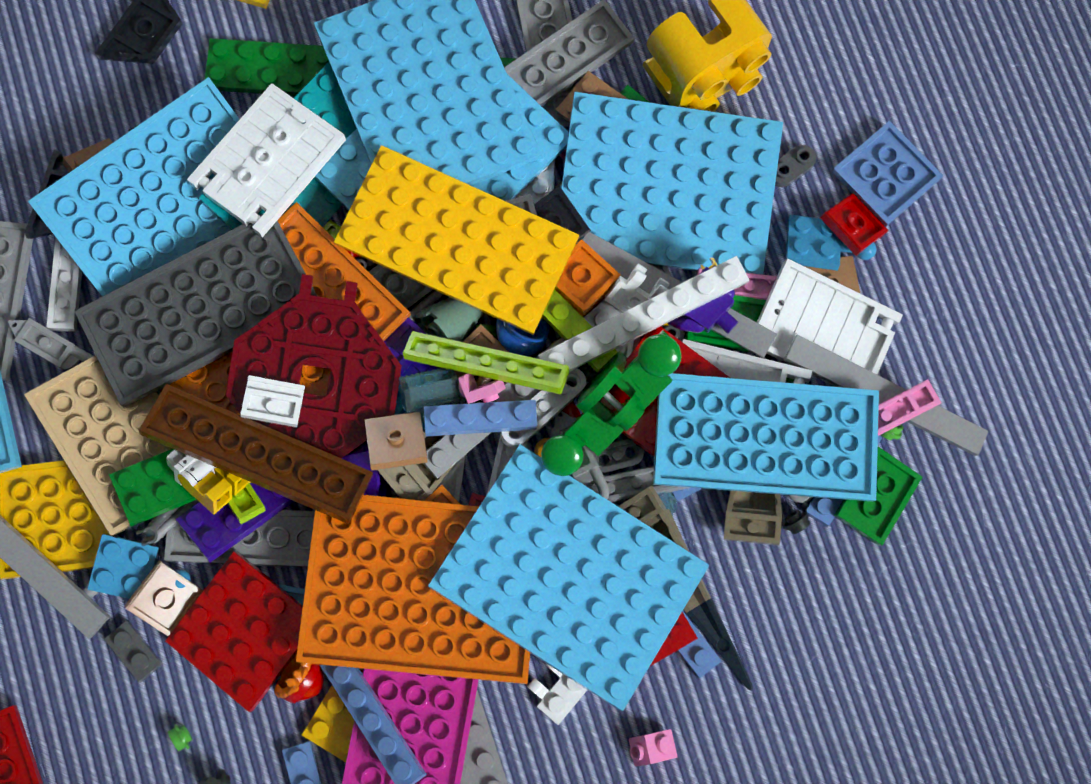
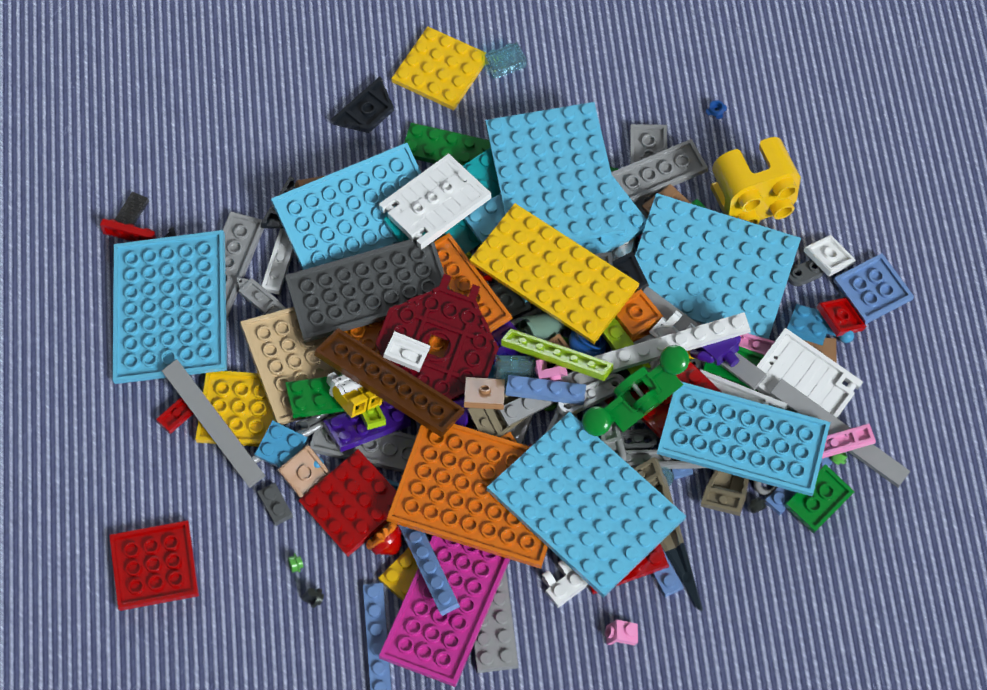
camera: 20 degrees right, 15 degrees down
(820, 136) = (829, 255): none -> white plate

